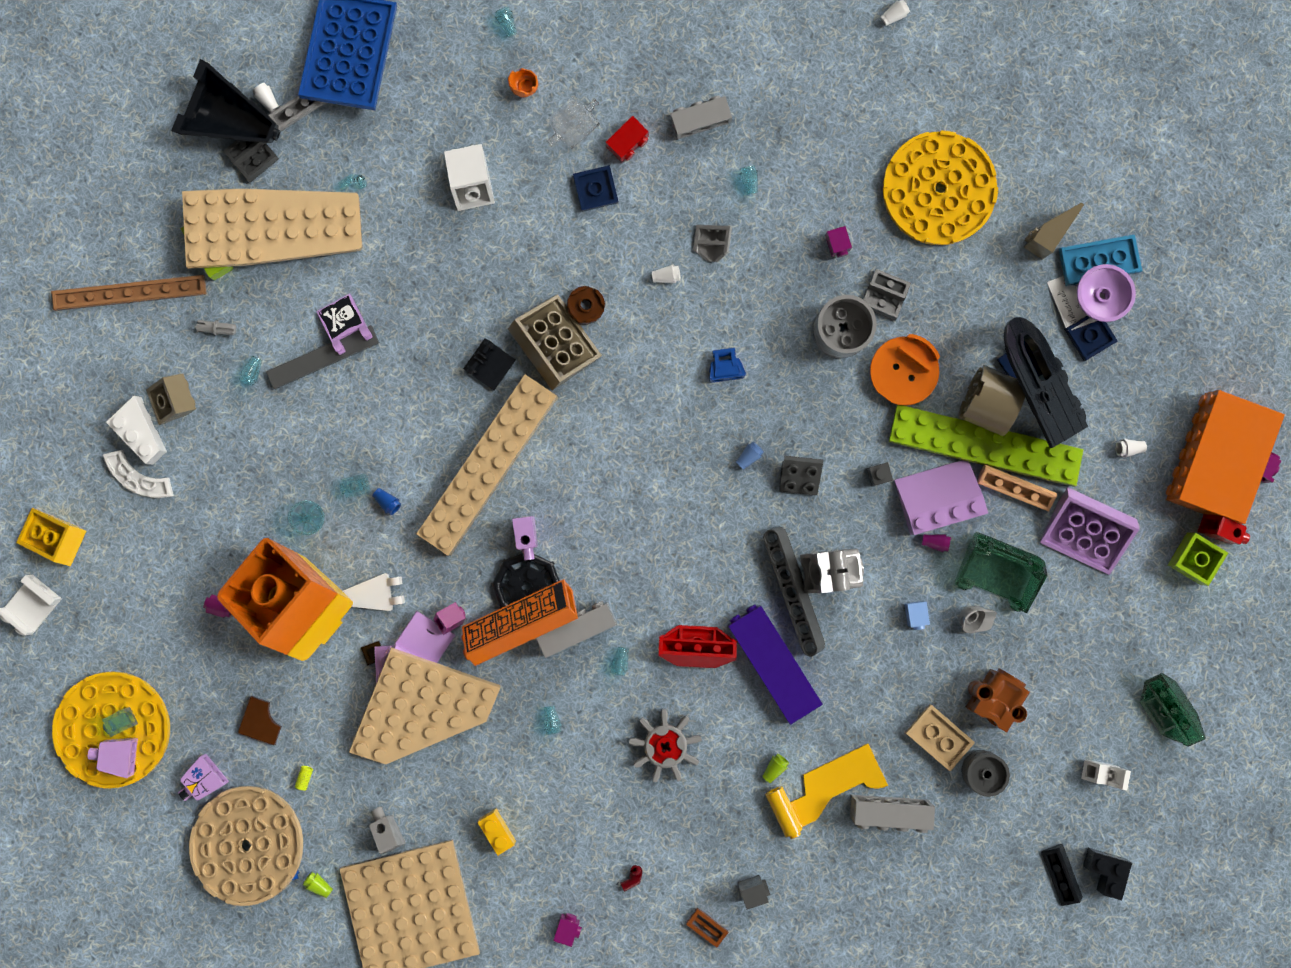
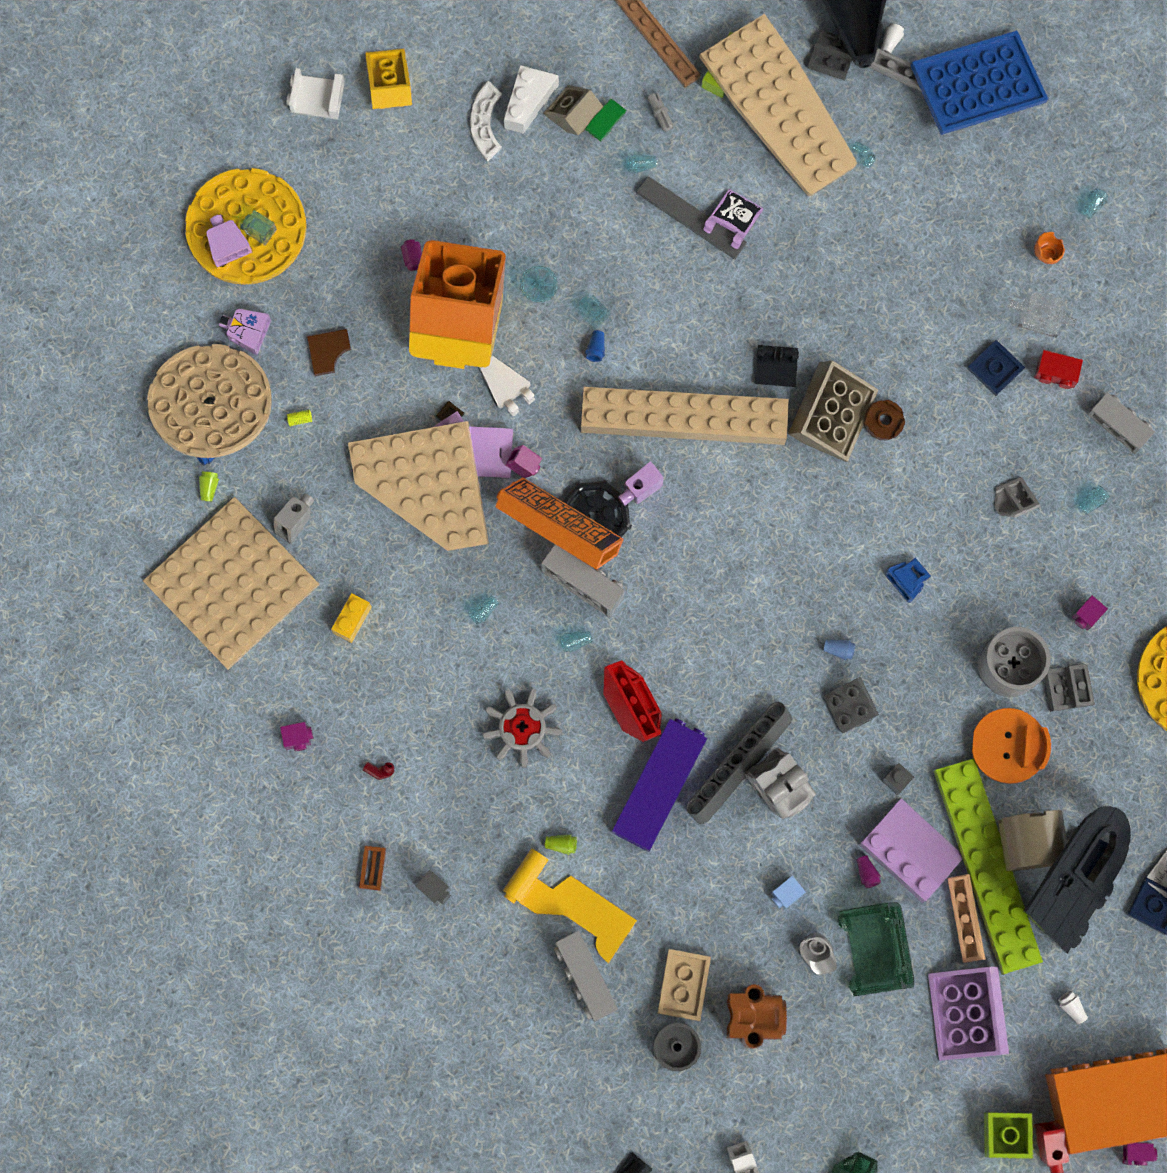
camera: 60 degrees right, 10 degrees down
(195, 377) = (605, 120): none -> green slope
(469, 177) = (933, 250): white slope -> none
(667, 274) = (958, 476): white cone -> none

